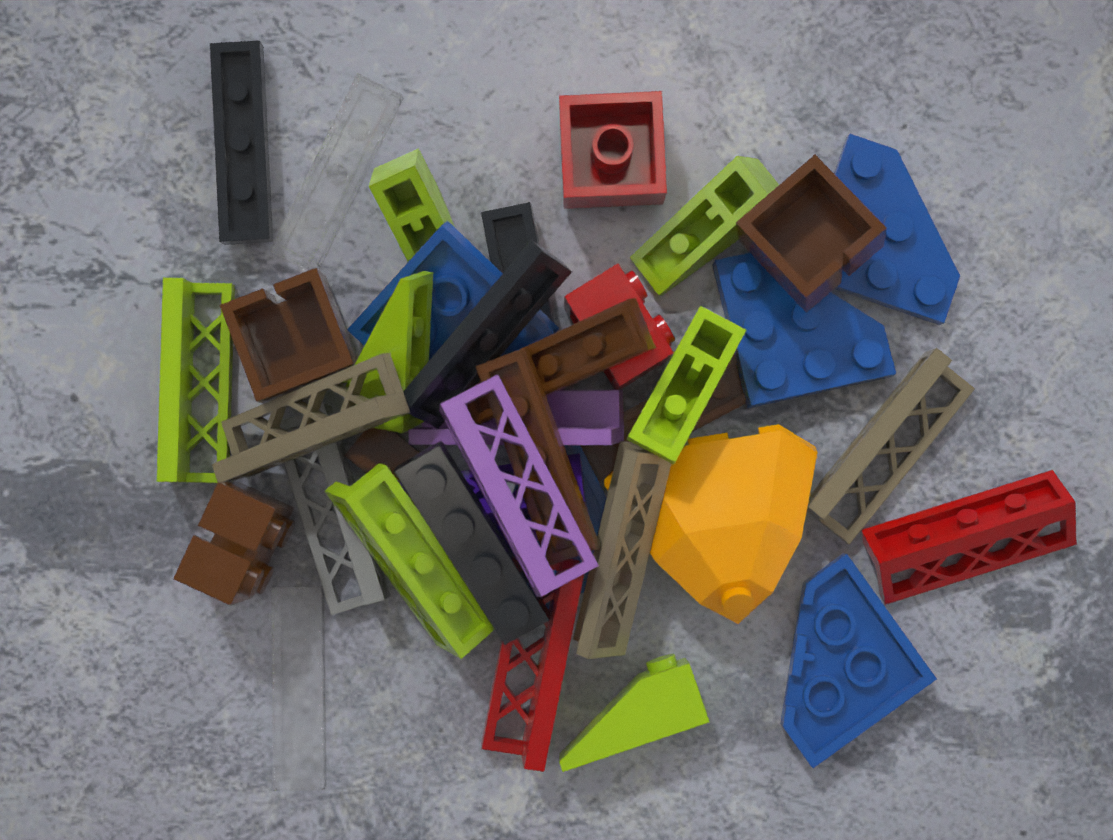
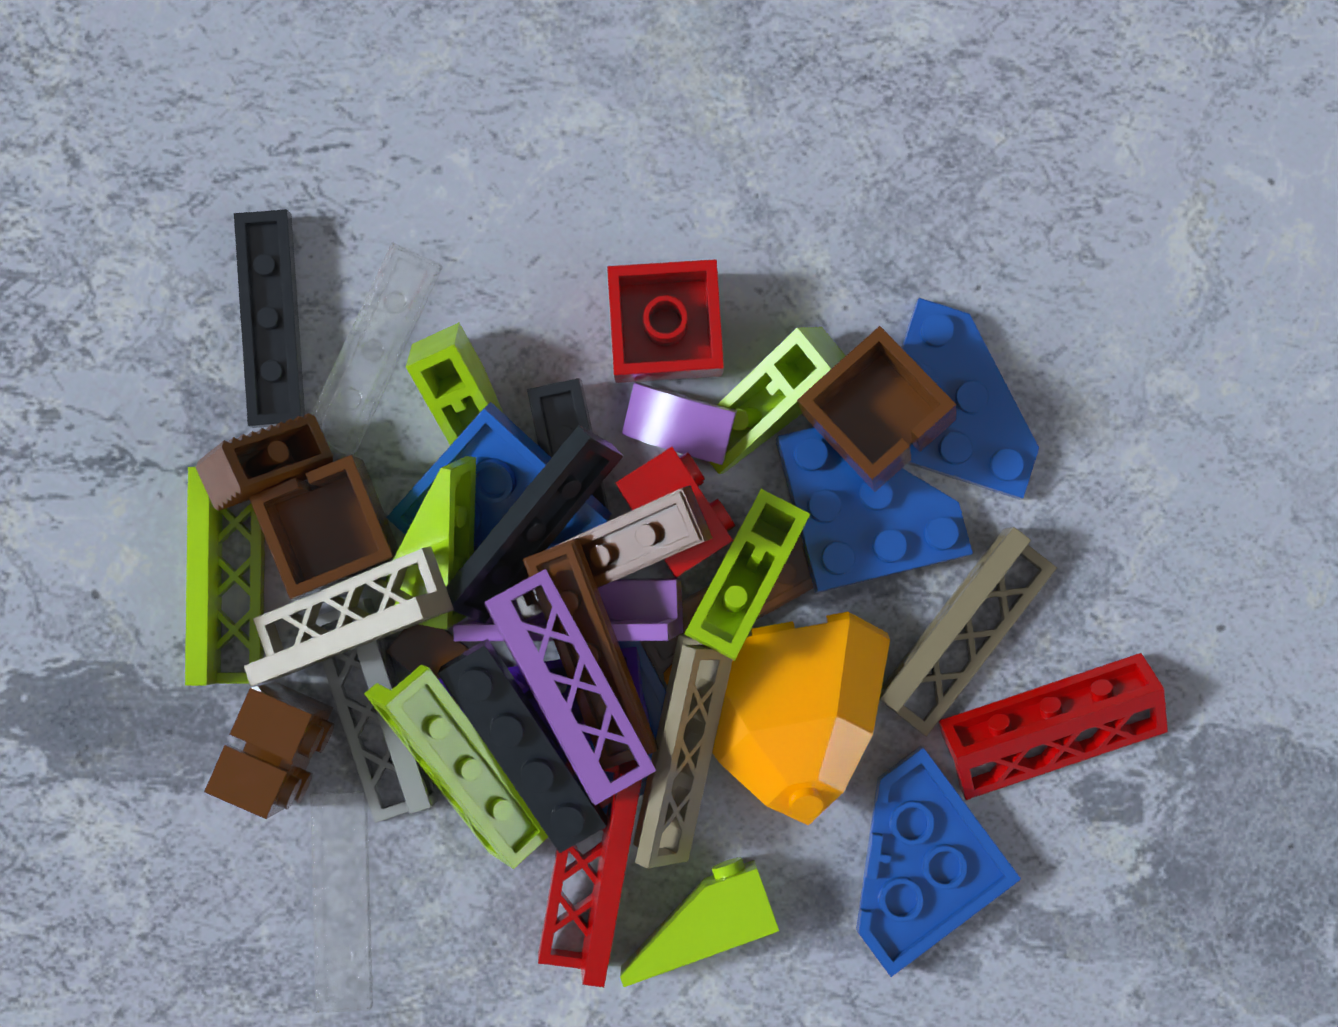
camera: 10 degrees left, 0 degrees up
(232, 271) = (263, 460): none -> reddish brown brick
(612, 240) = (678, 422): none -> medium lavender slope

